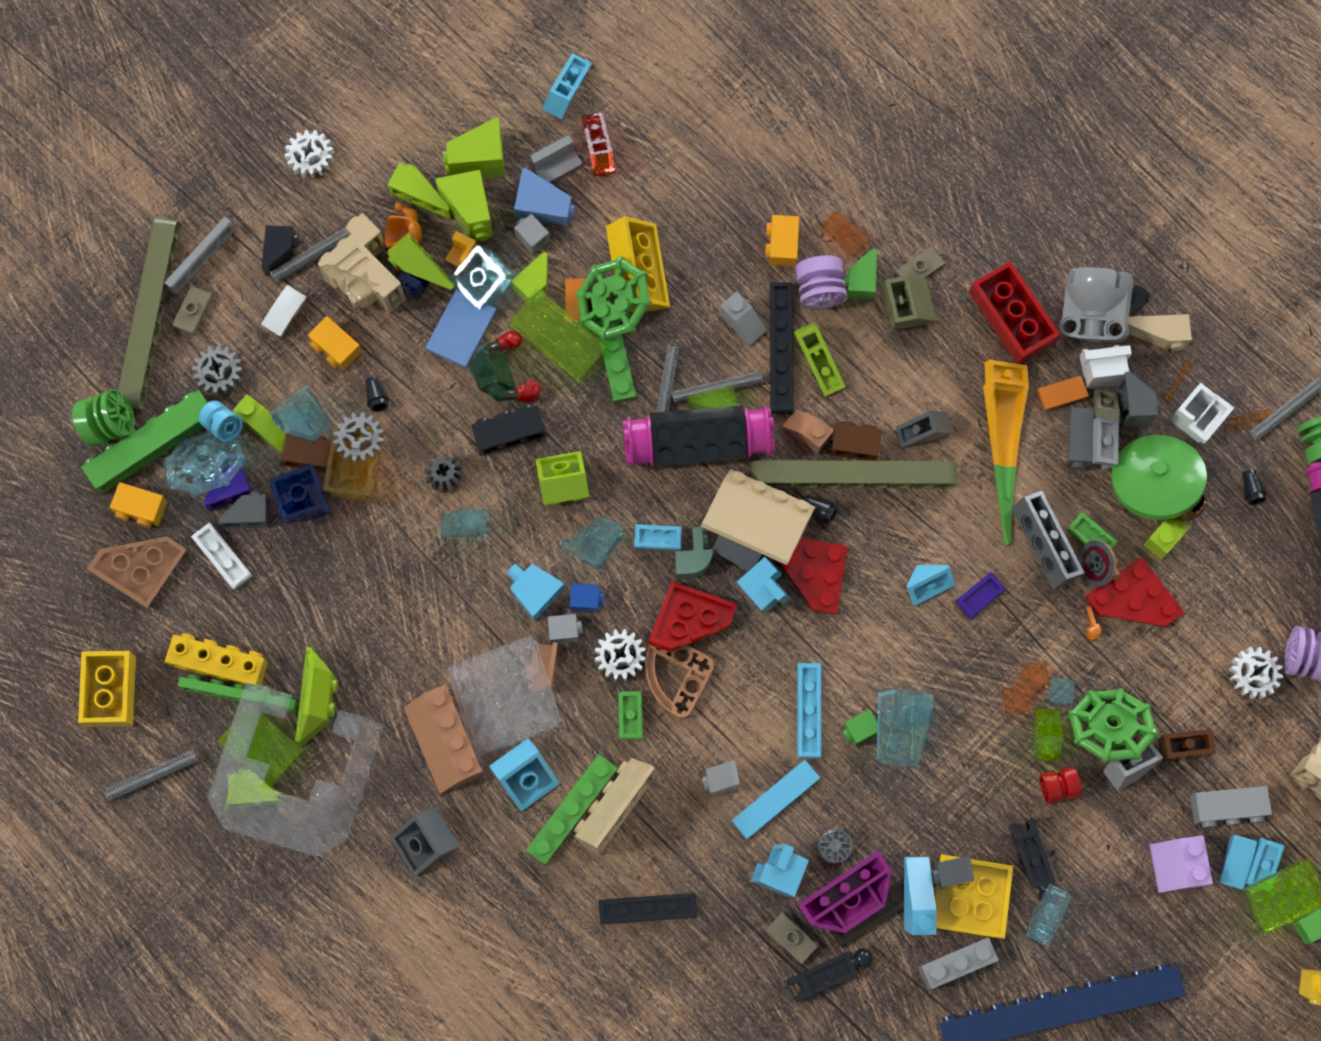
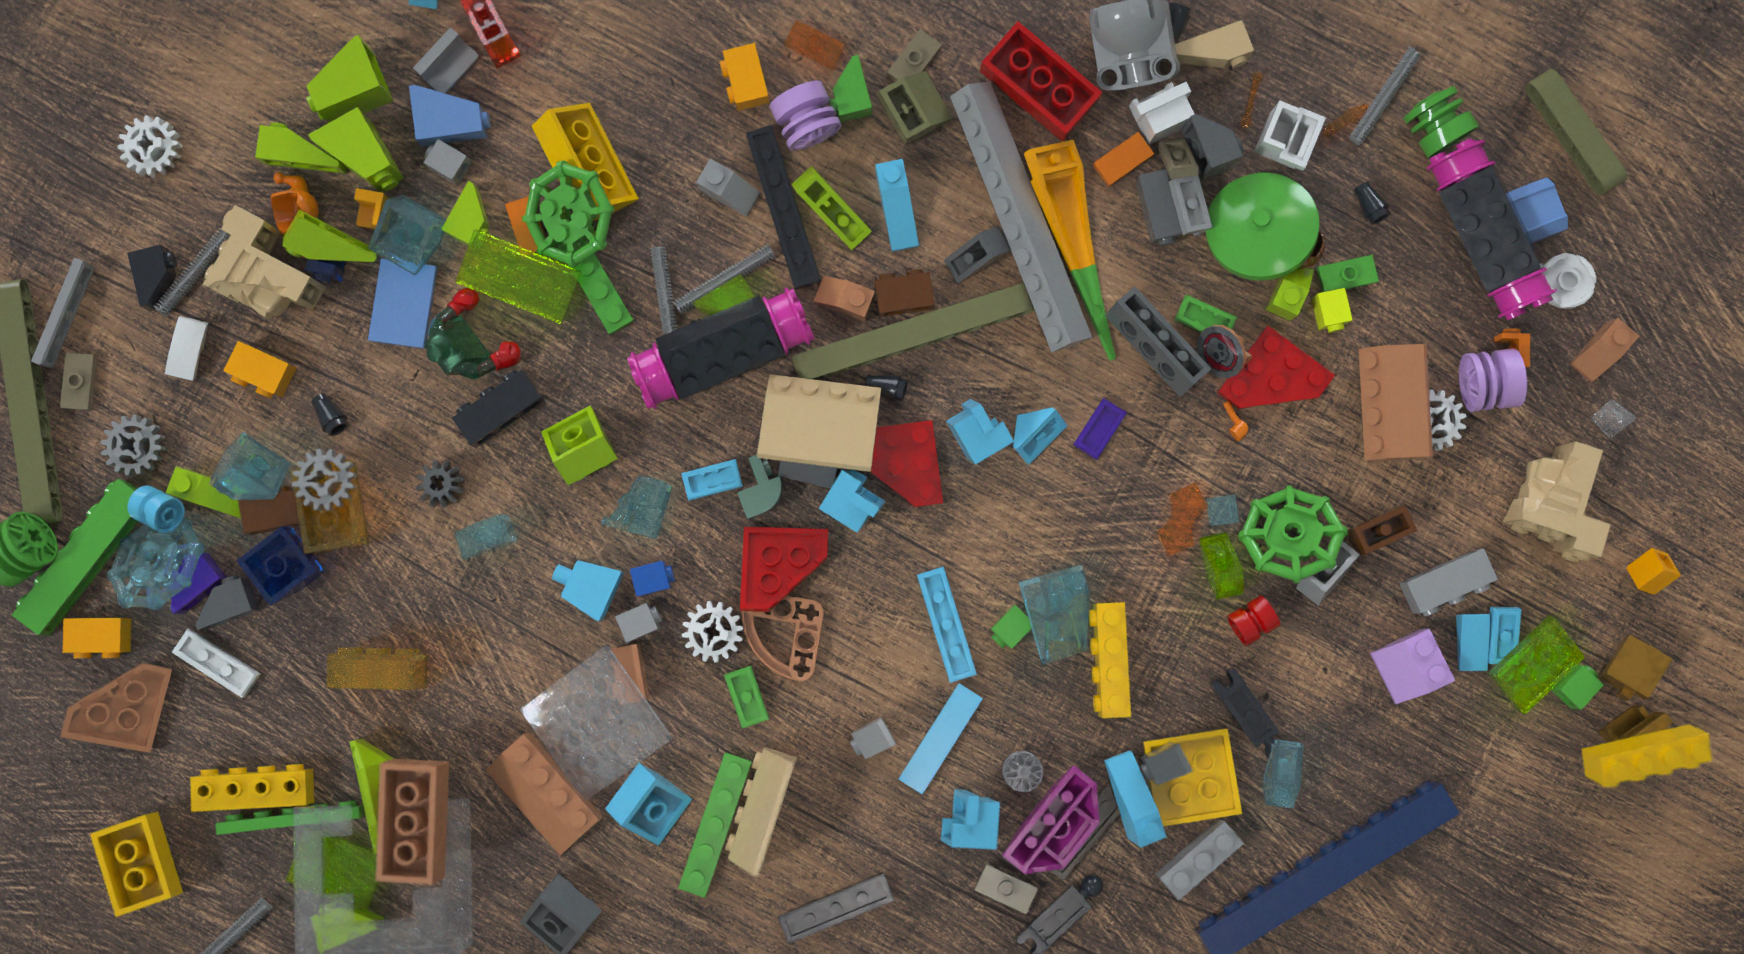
camera: 20 degrees left, 10 degrees up
(337, 719) = (412, 821): none -> nougat brick
(347, 598) = (377, 669): none -> clear yellow brick
(871, 372) = (896, 205): none -> medium azure slope
(881, 565) = (977, 433): none -> medium azure plate
(934, 779) = (1110, 659): none -> yellow brick
(967, 411) = (1020, 216): none -> light grey brick
(1196, 560) = (1332, 310): none -> neon yellow brick
(1217, 537) = (1347, 274): none -> bright green plate
(1226, 647) = (1395, 402): none -> nougat slope

